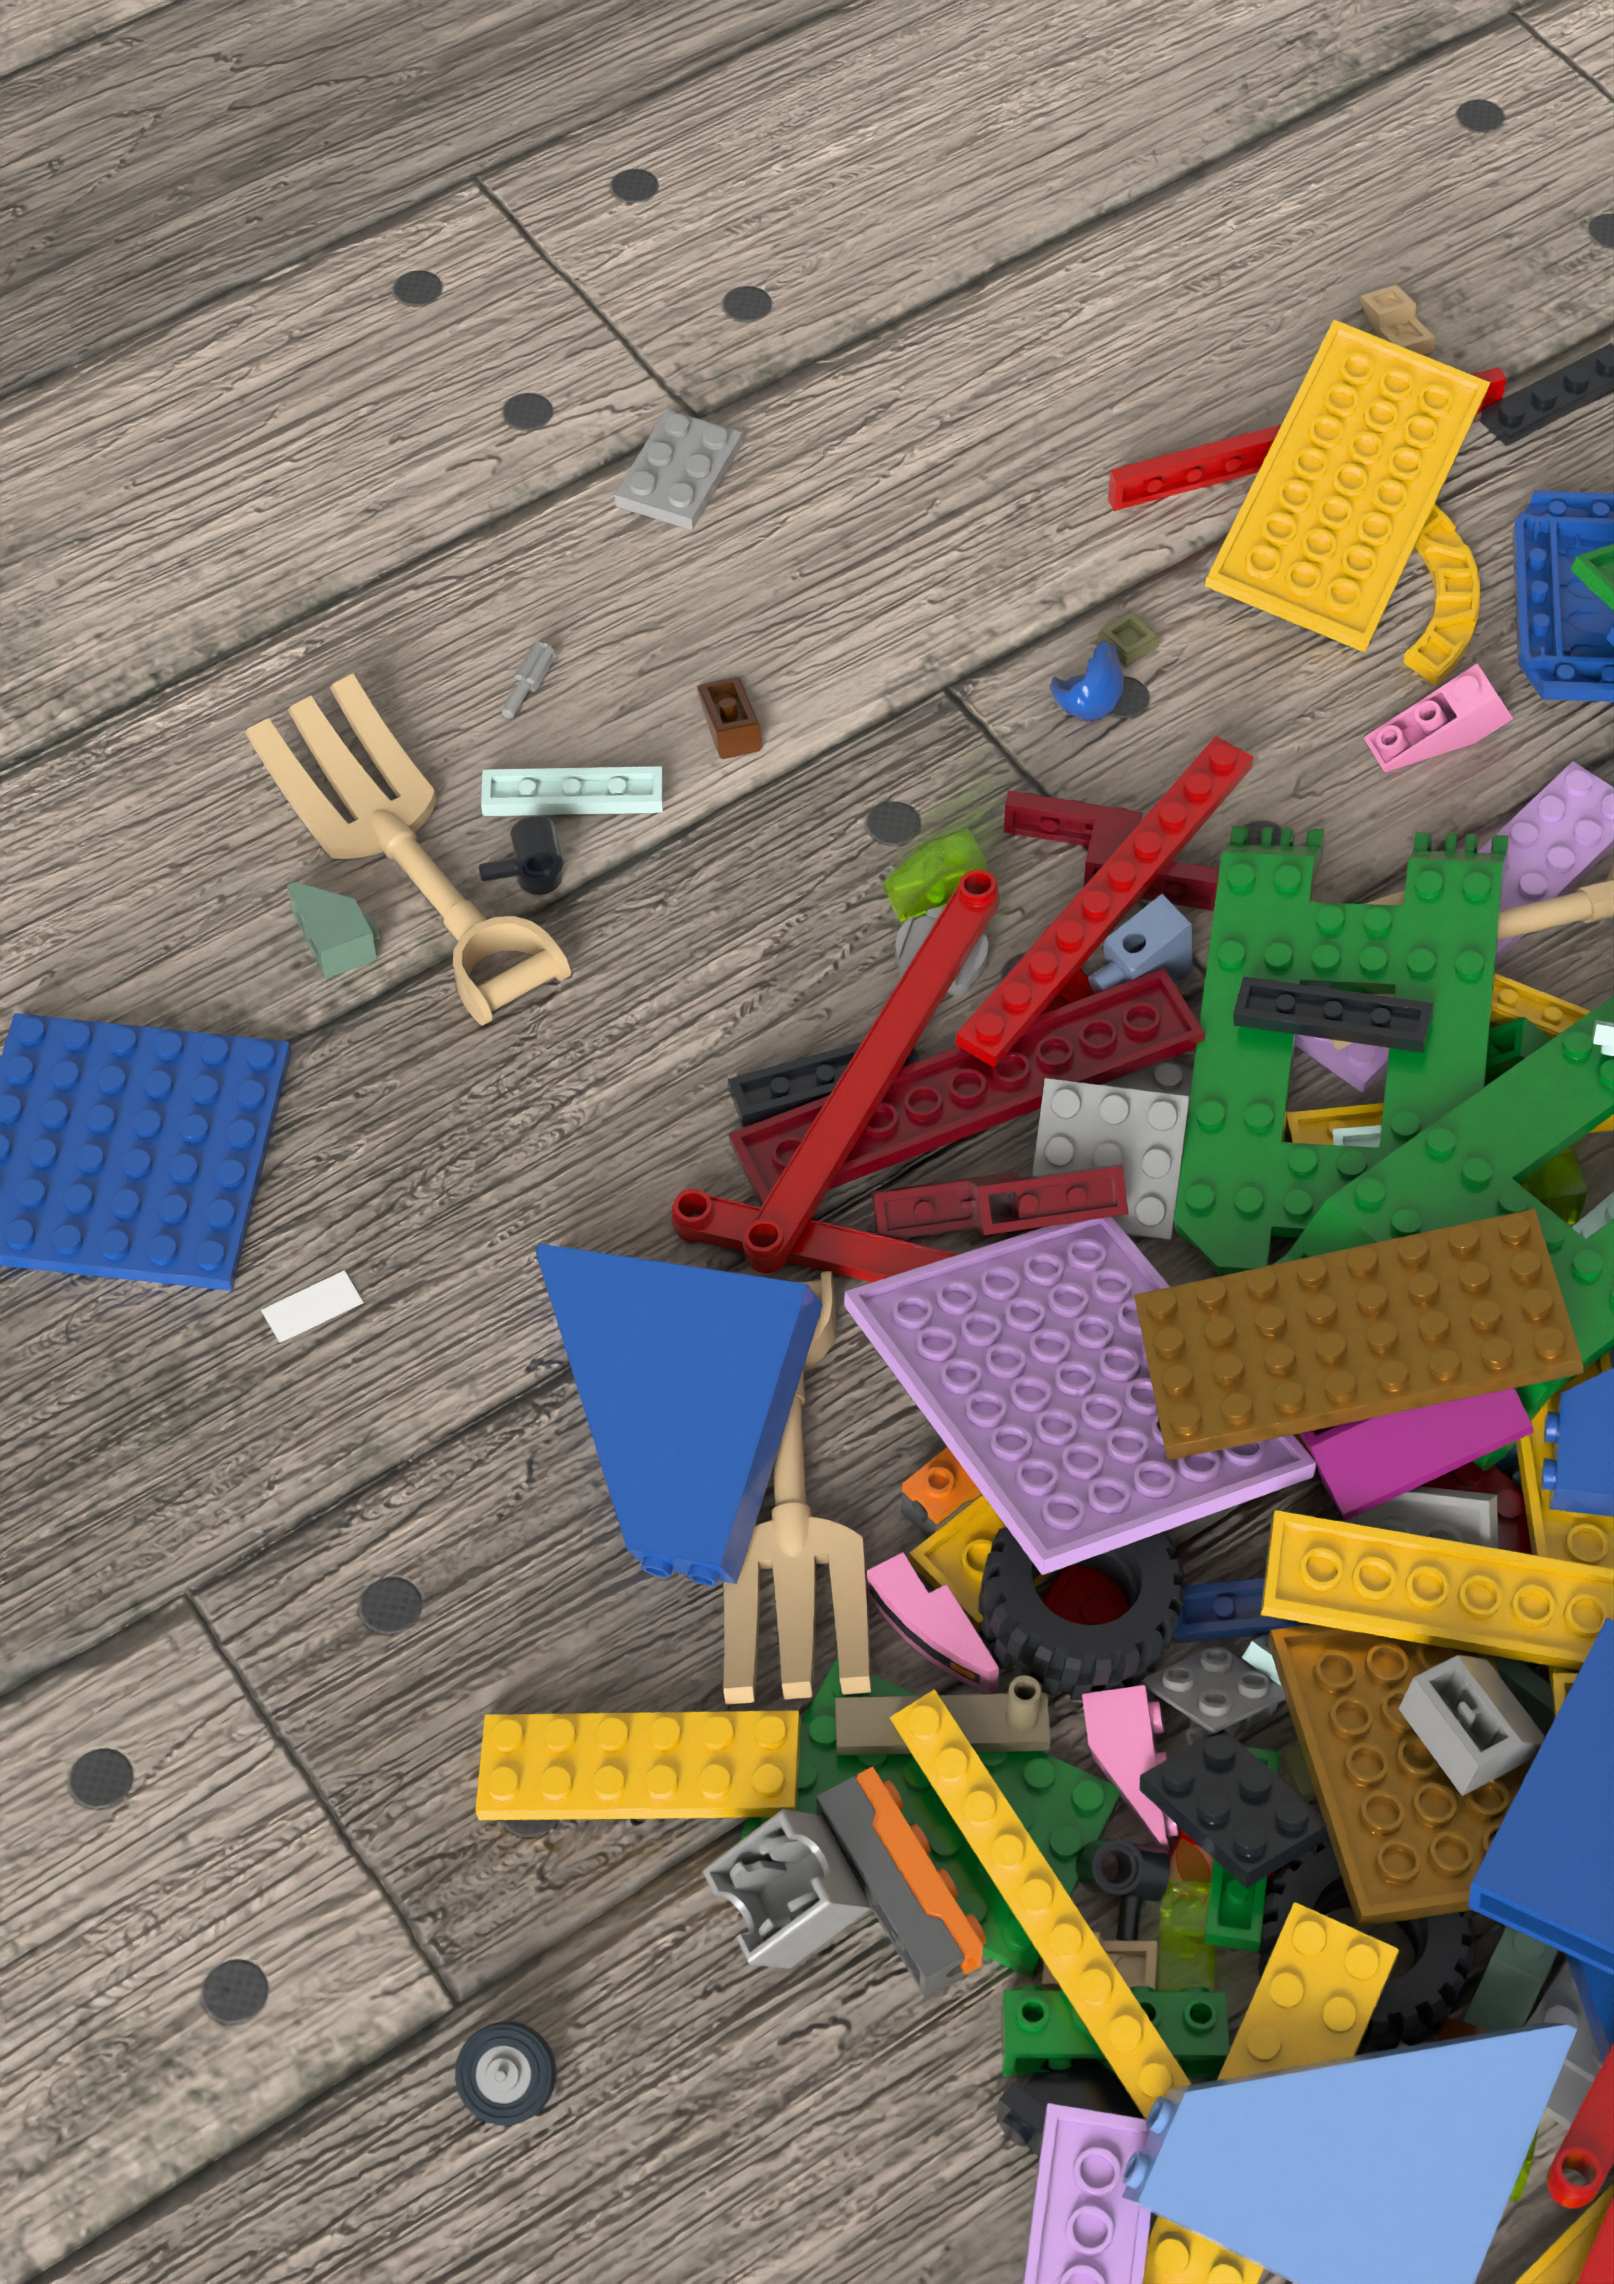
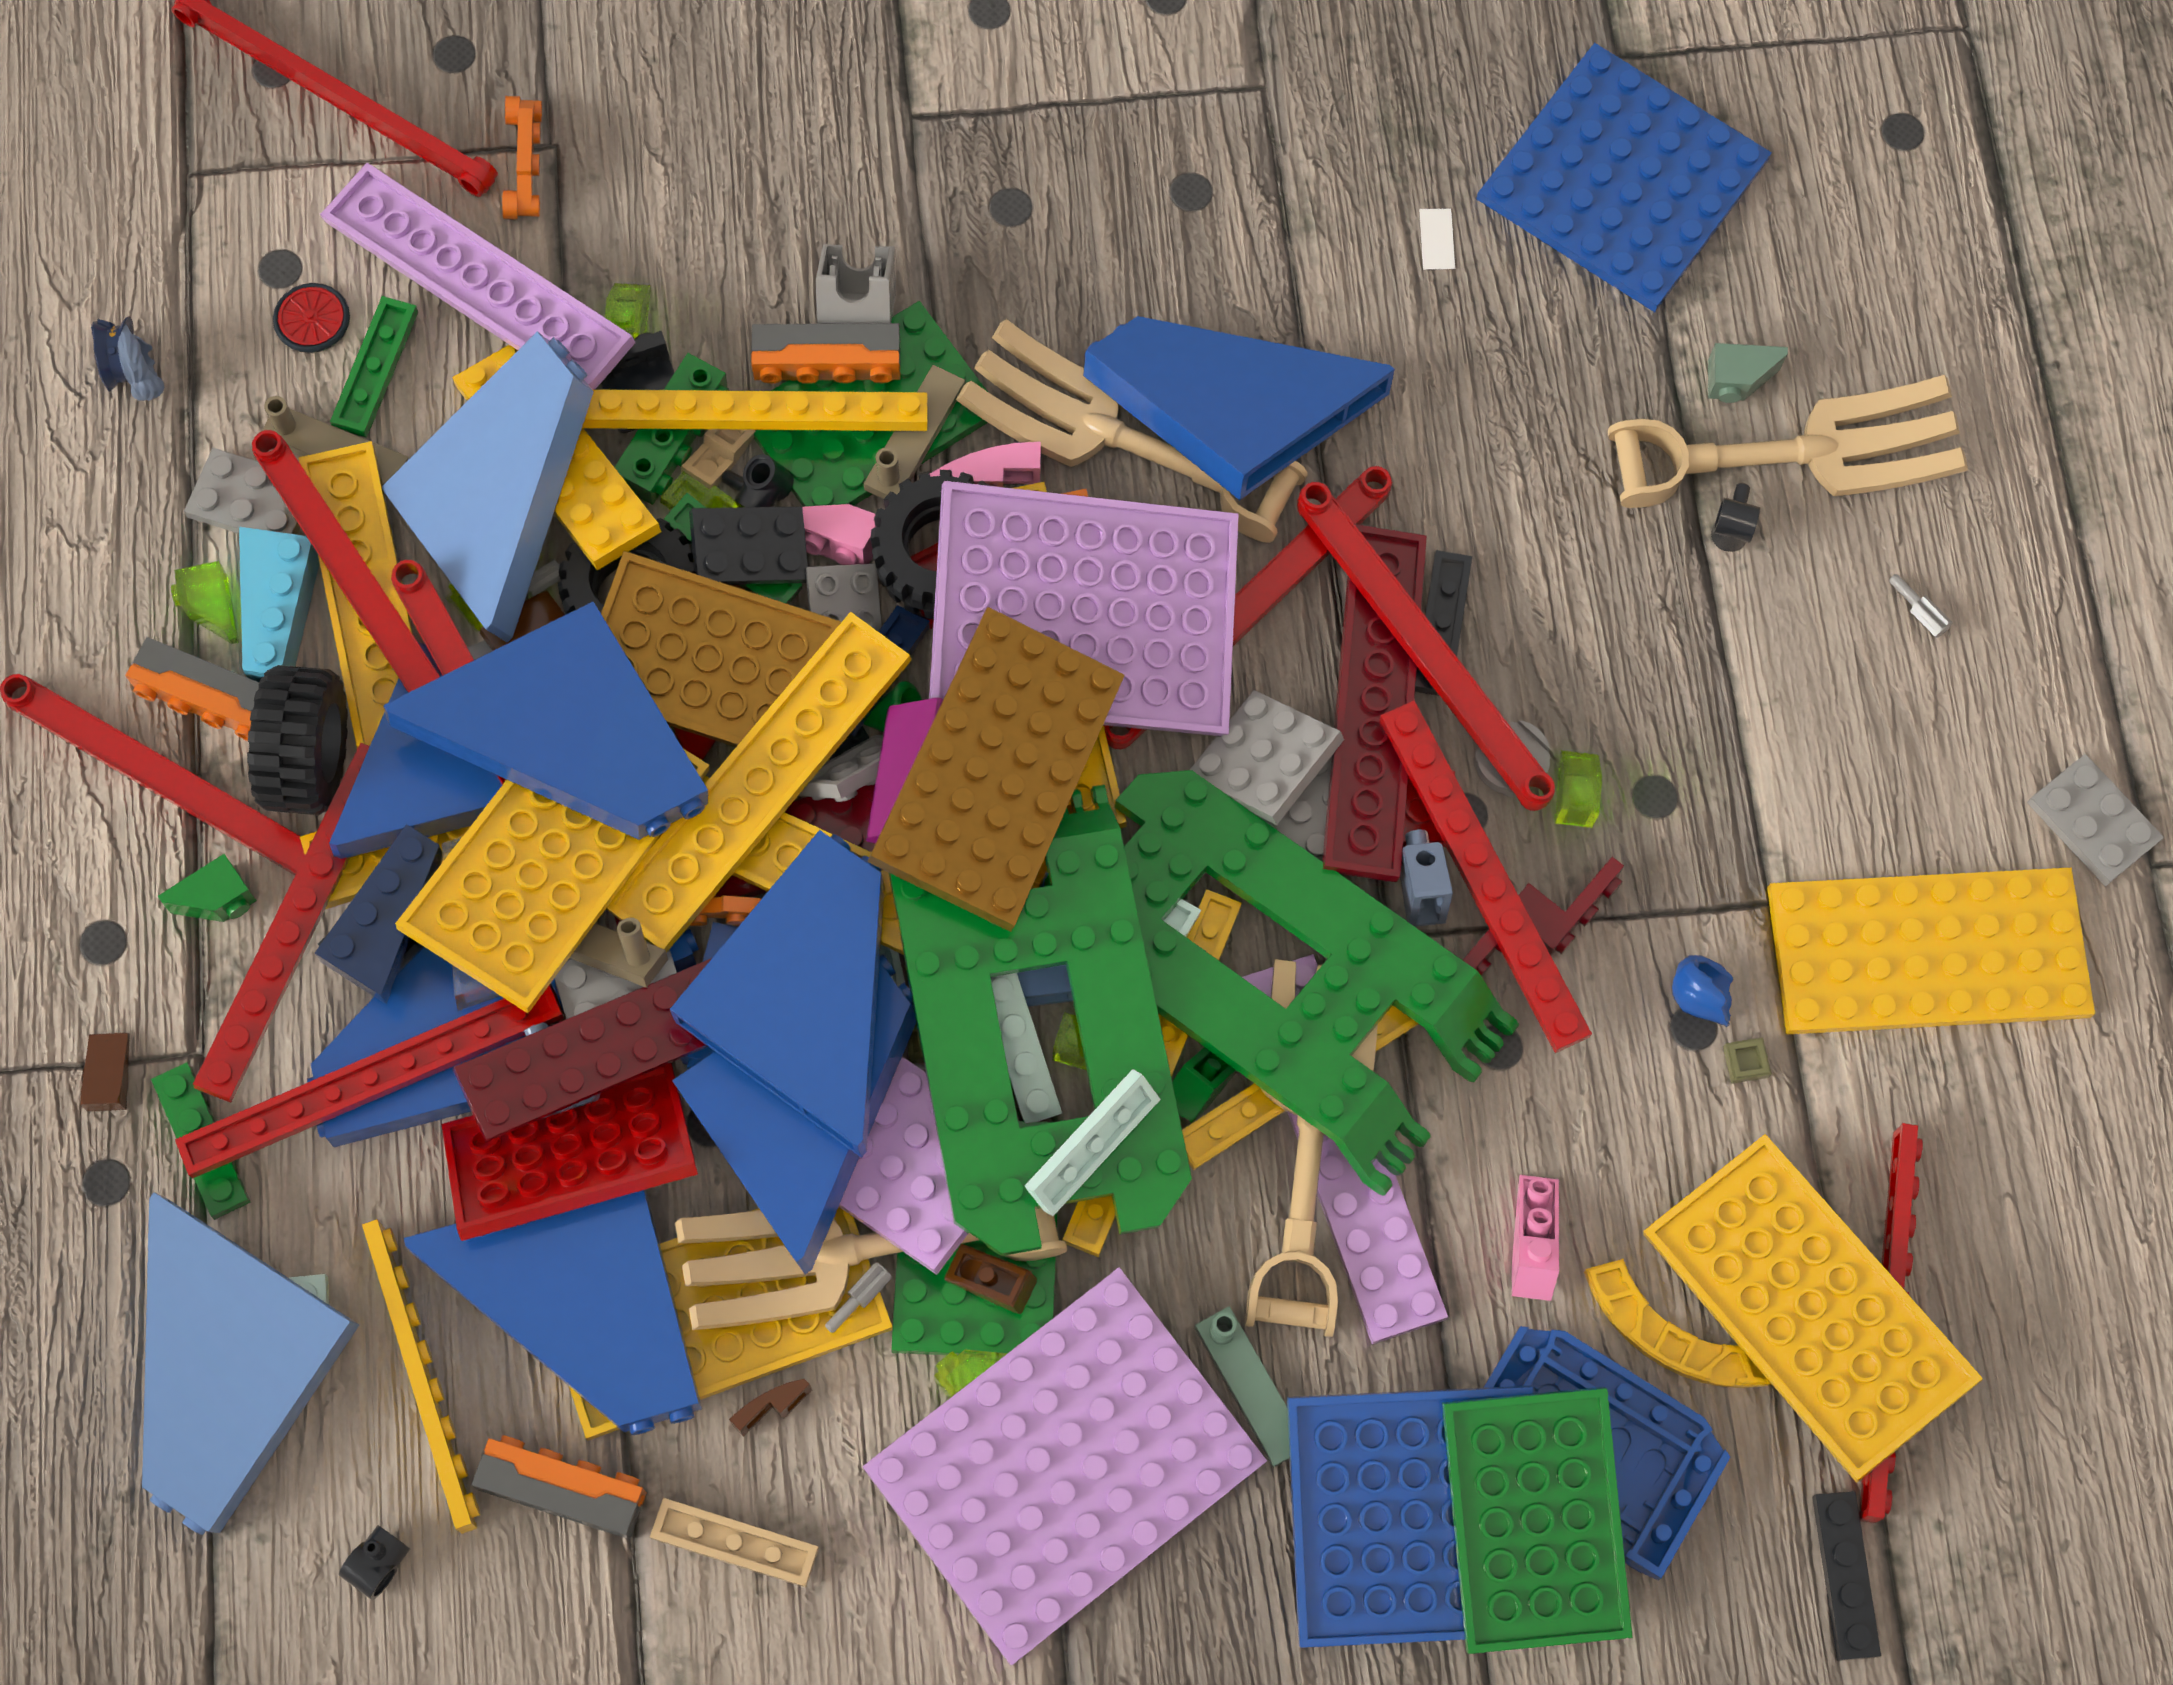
camera: 115 degrees right, 15 degrees up
(505, 2073) = (847, 109): black wheel -> none
(572, 791) = (1791, 583): light aqua plate -> none
(638, 1765) = (993, 265): yellow plate -> none
(730, 717) = (1814, 729): reddish brown slope -> none
(911, 546) = (1930, 951): none -> yellow plate
(978, 2192) = (629, 307): none -> clear neon green slope
(1000, 1202) = (1266, 665): dark red bracket -> none
(1333, 1014) = (1280, 944): black plate -> none
(1395, 320) = (1994, 1488): tan slope -> none
(1470, 1721) = (700, 686): light grey slope -> none

